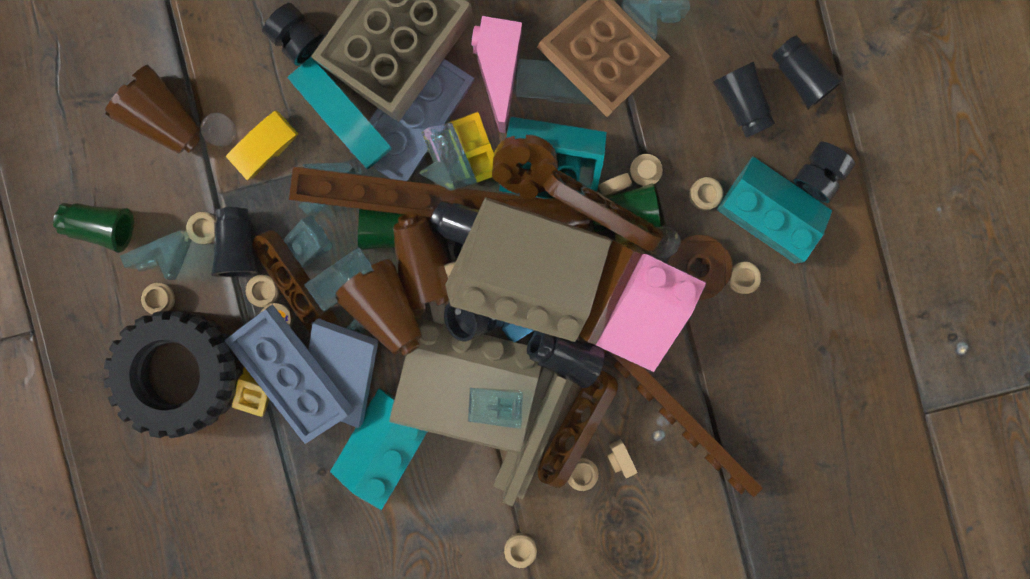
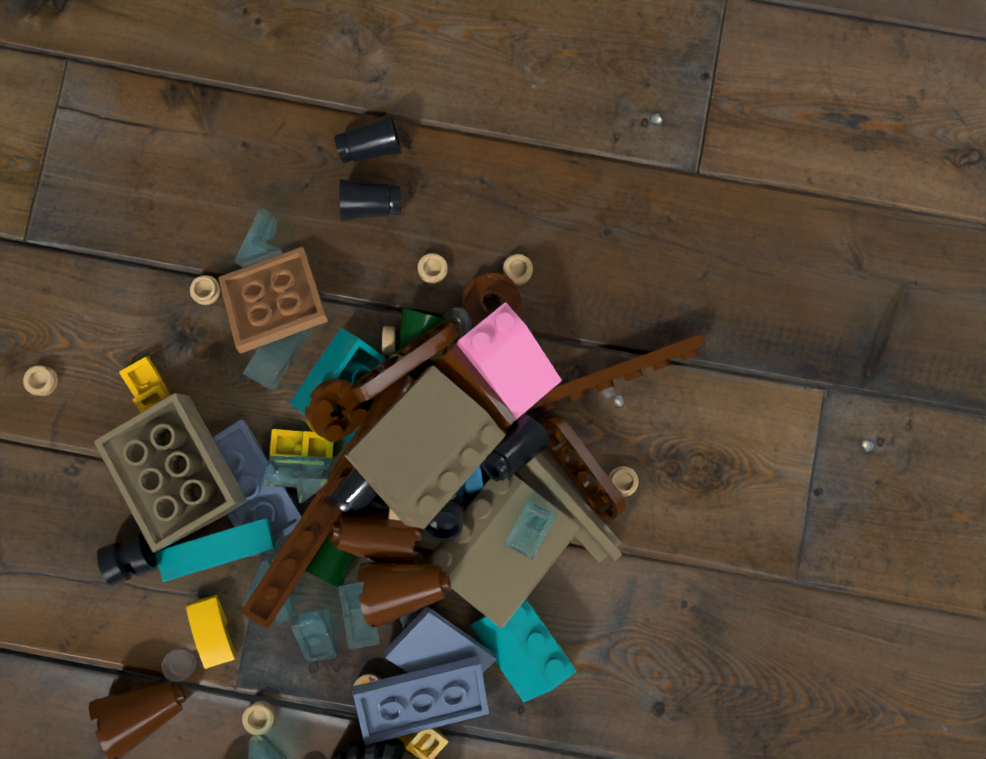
camera: 70 degrees left, 5 degrees down
(233, 244) = (284, 697): black plant -> none
(262, 291) = (338, 689): tan tile -> none
(276, 255) = (304, 666): reddish brown beam -> none
(498, 49) = (226, 387): bright pink slope -> none
(520, 550) = (665, 564): tan tile -> none
(620, 459) = (625, 442): tan plate -> none
(646, 169) = (388, 309): tan plate -> none
(775, 211) = (474, 218): teal slope -> none
(826, 168) = (457, 160): black wheel -> none

